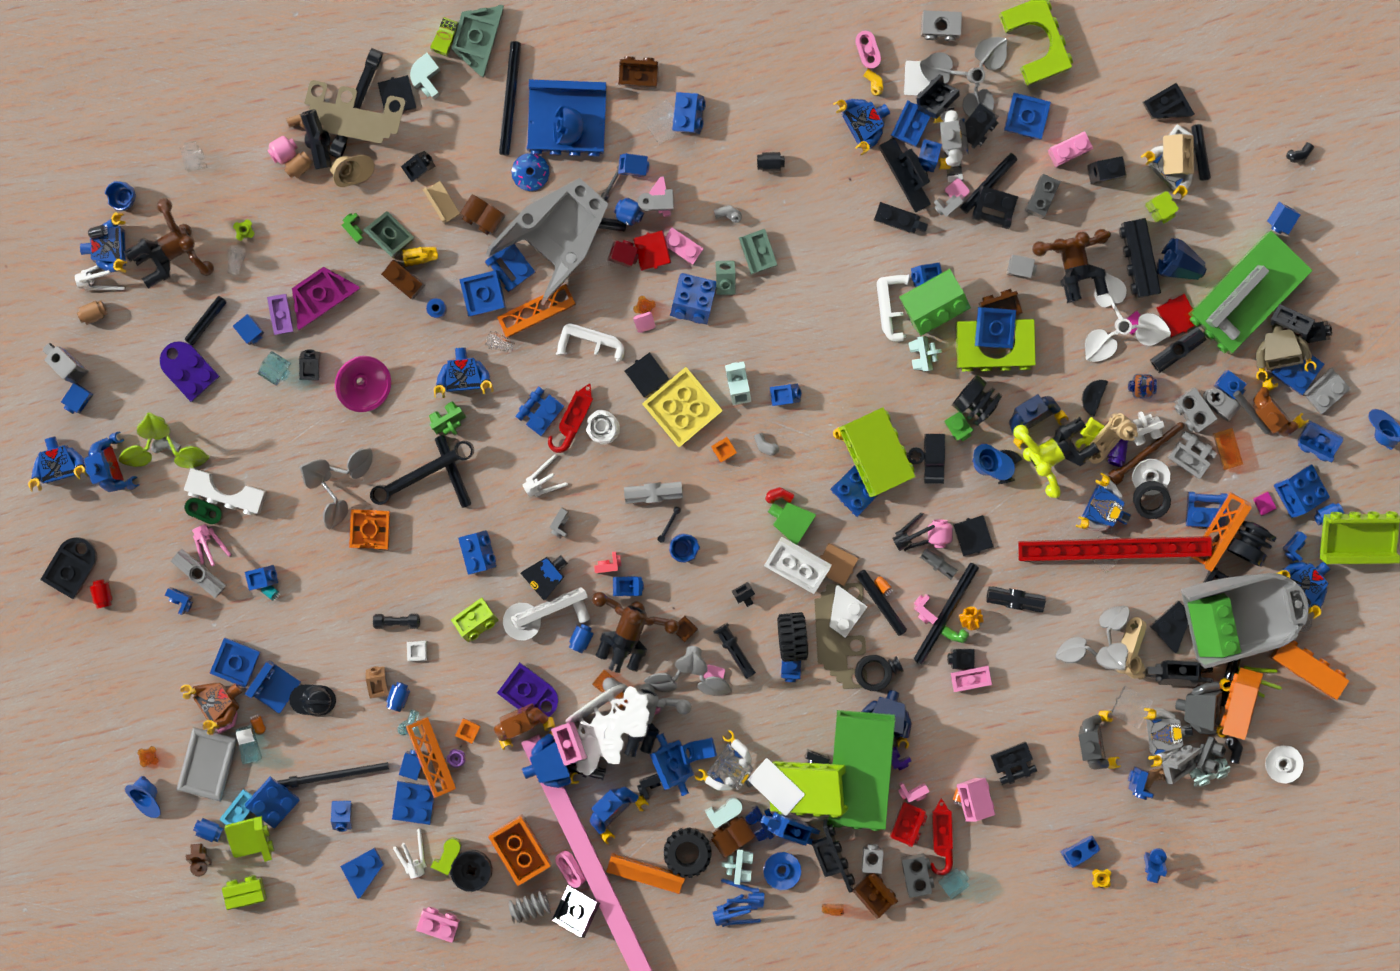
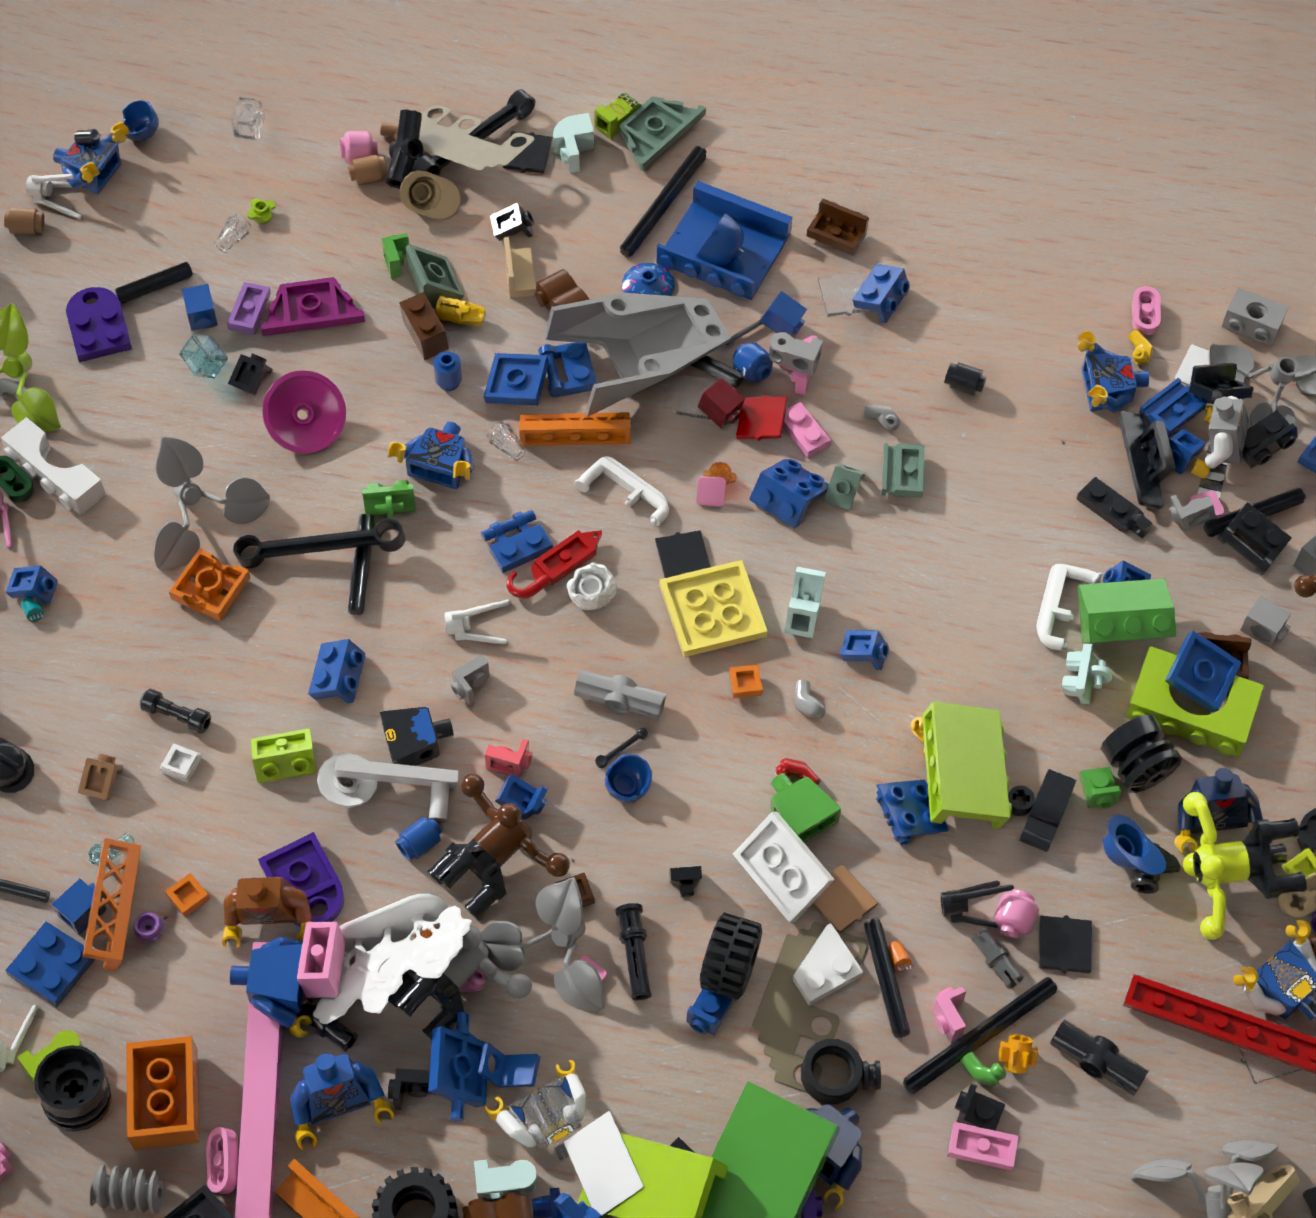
camera: 25 degrees right, 30 degrees down
(167, 248) = (155, 179): wheel -> none
(397, 696) = (117, 806): blue brick -> none

